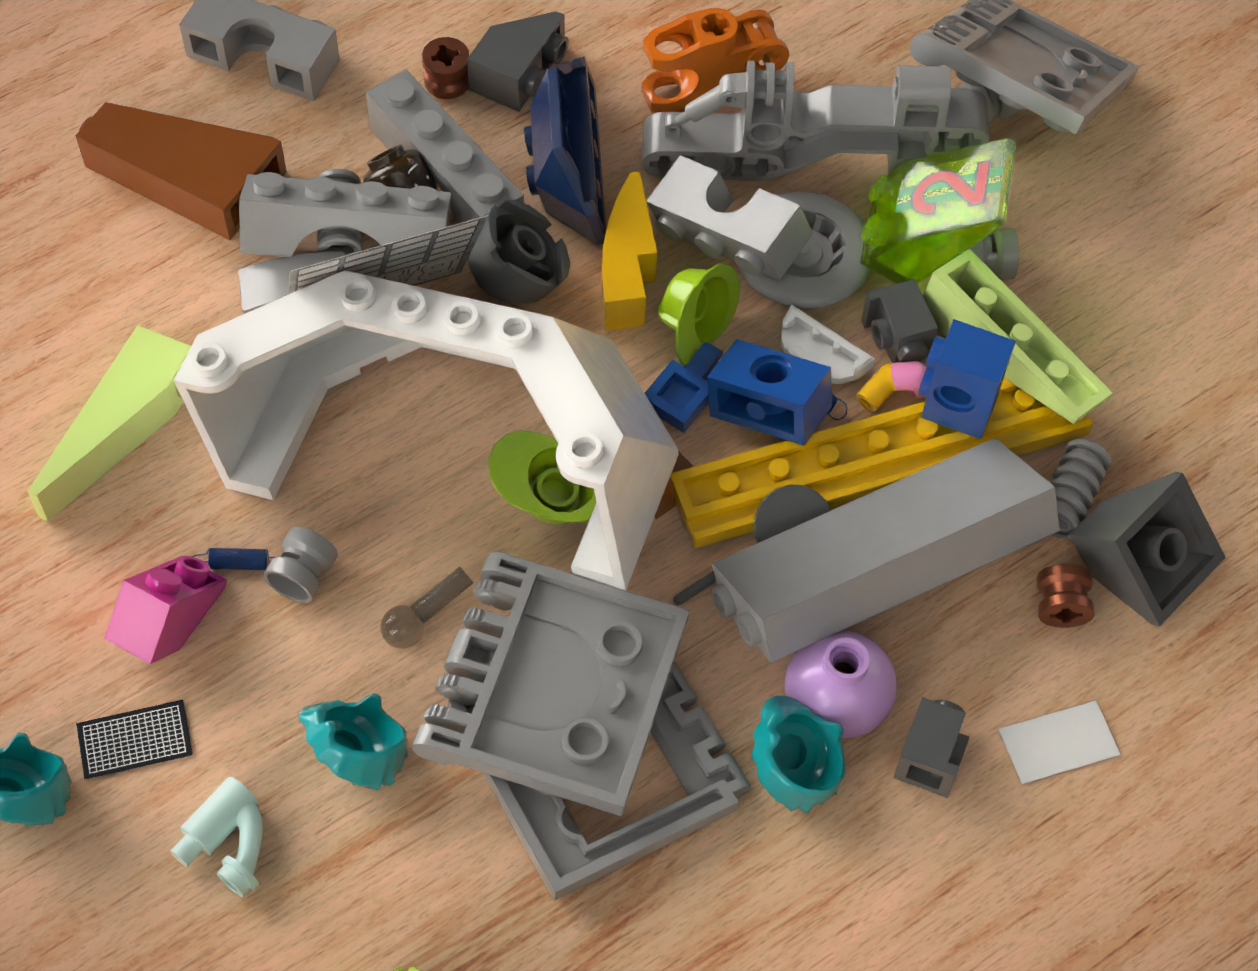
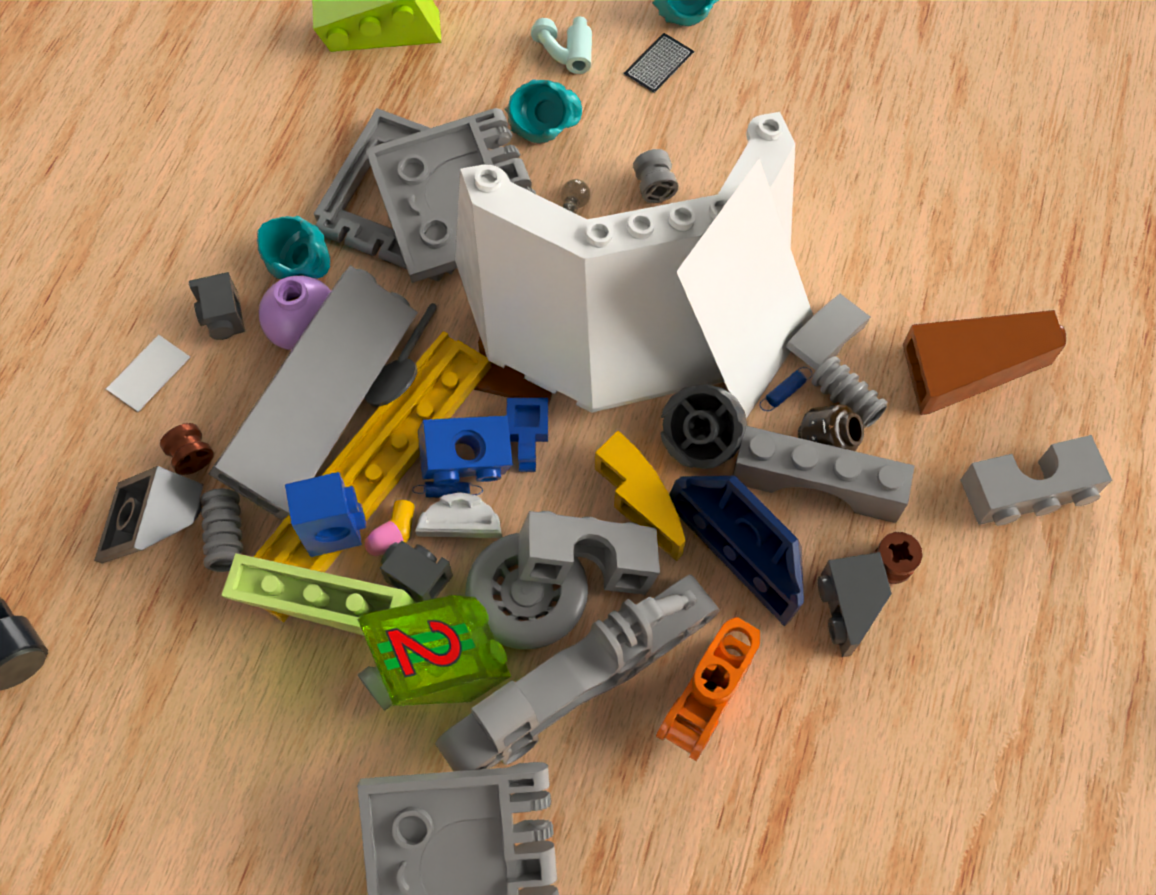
camera: 145 degrees right, 5 degrees up
(119, 416) = (843, 209): yellowish green slope -> none
(163, 607) = (703, 113): dark pink slope -> none
(237, 558) = (696, 166): blue piece -> none
(283, 211) = (832, 372): light grey arch -> none
(699, 307) = (561, 474): lime piece -> none

